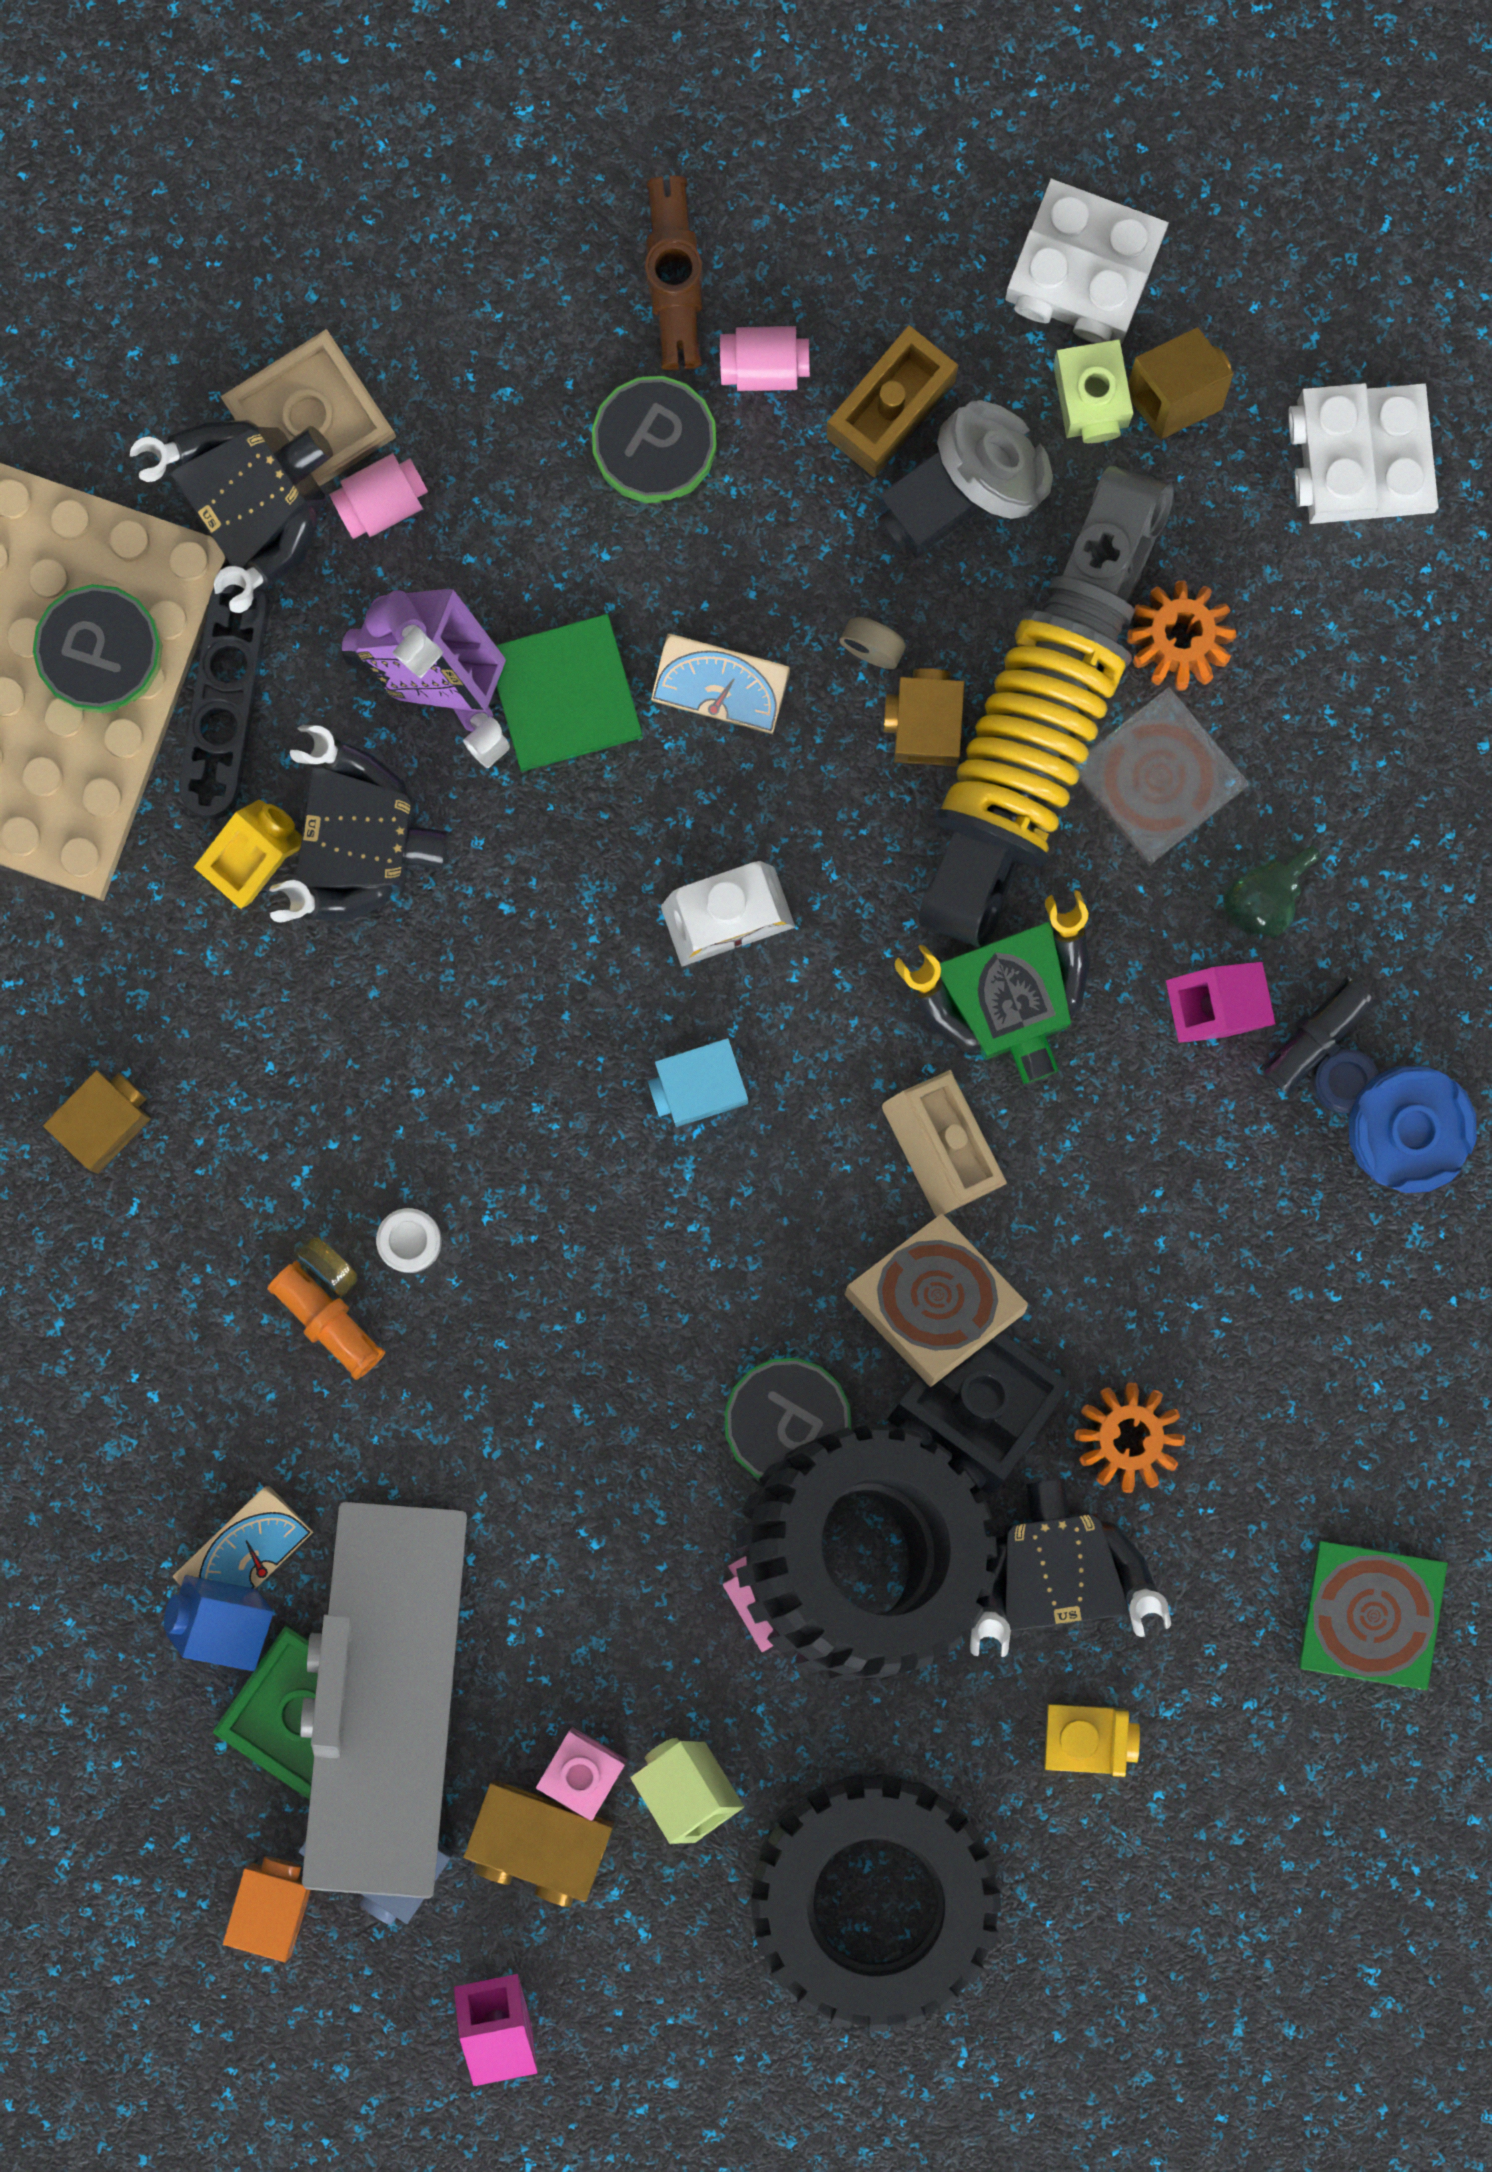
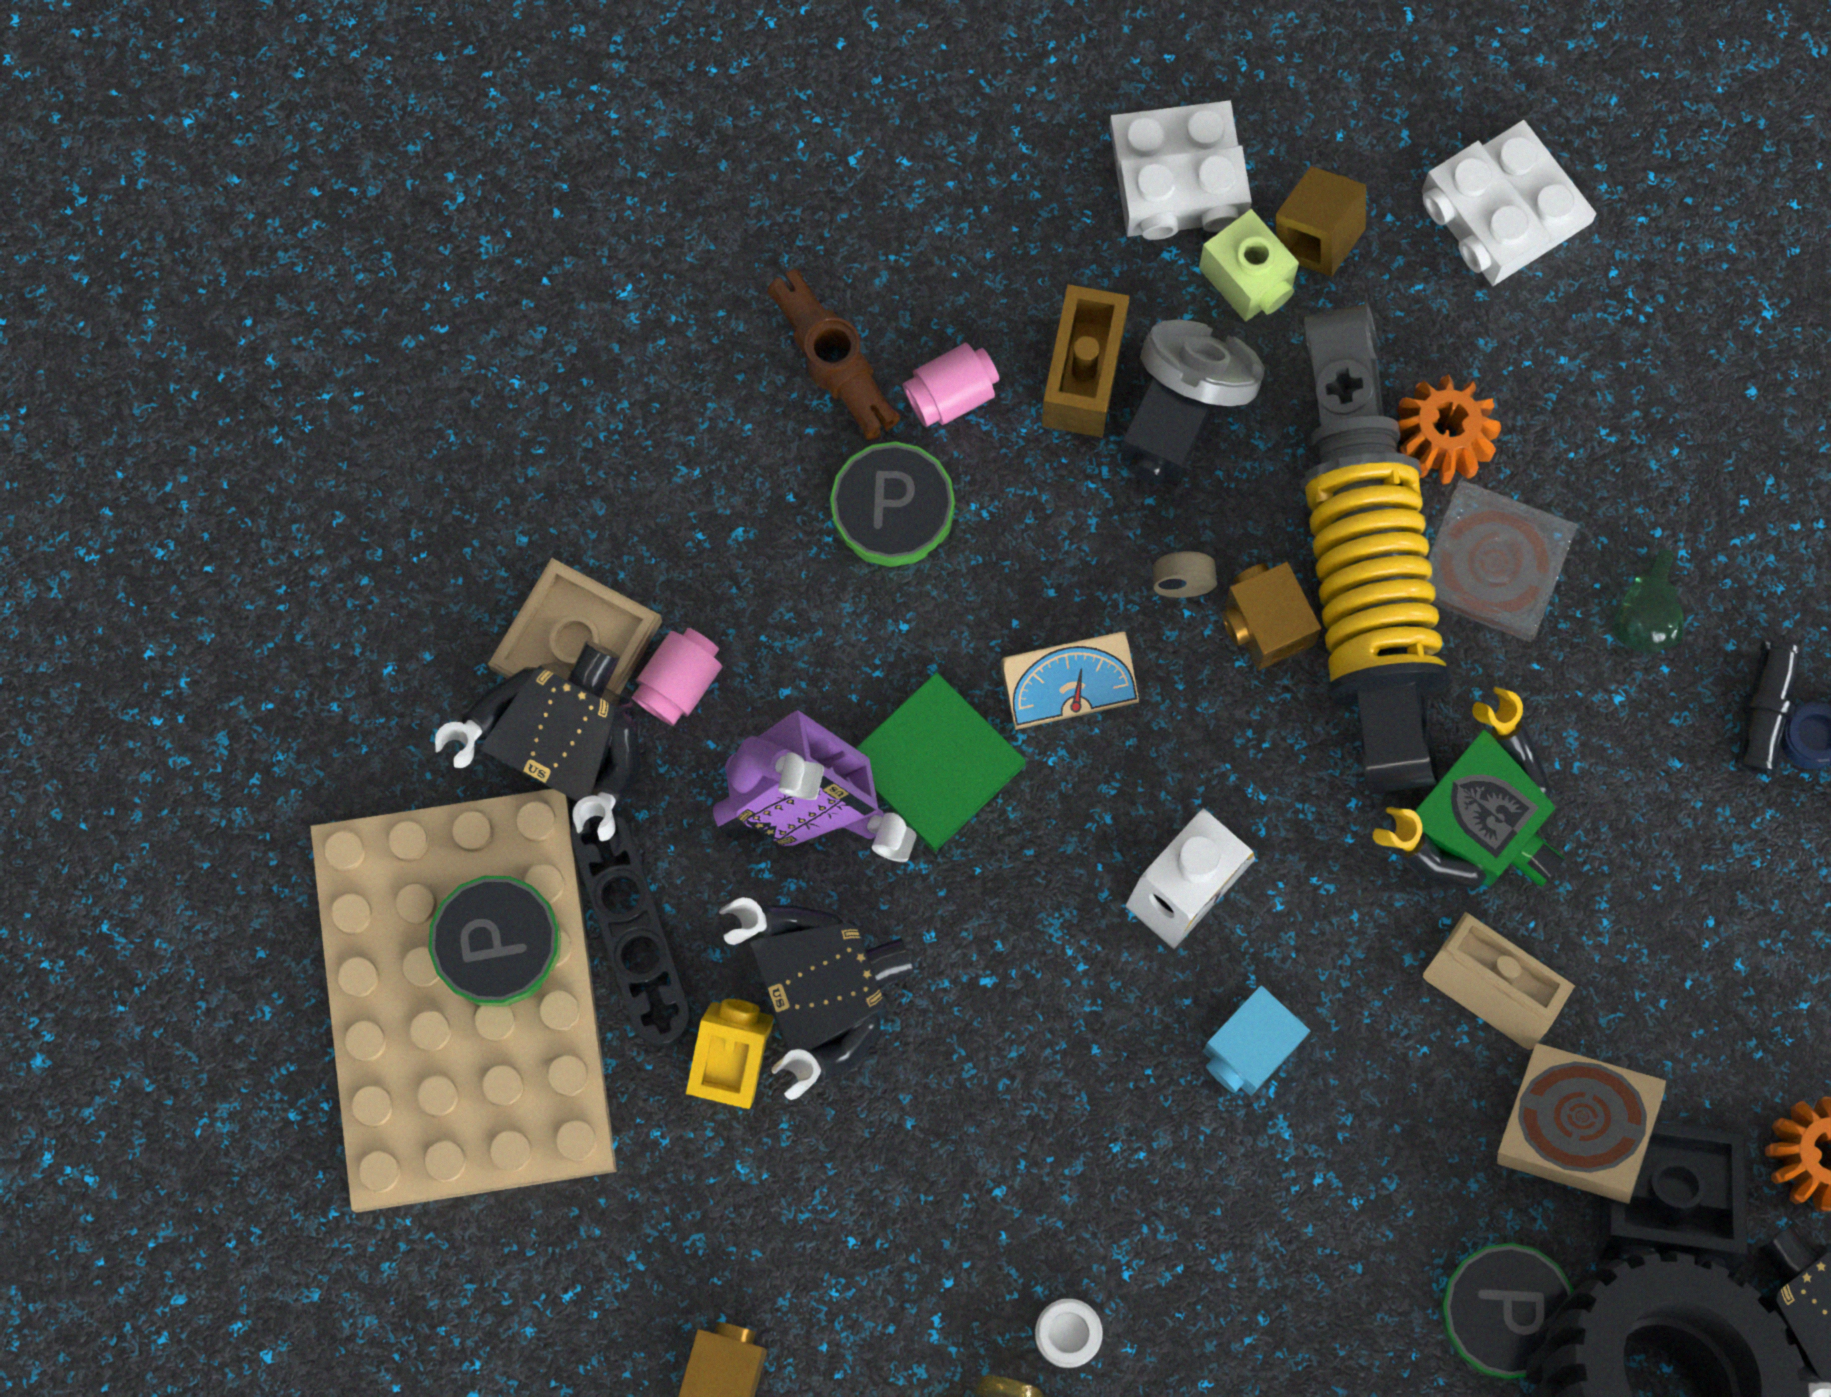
camera: 30 degrees left, 10 degrees down
(1220, 1002) = (1672, 720): dark pink brick -> none

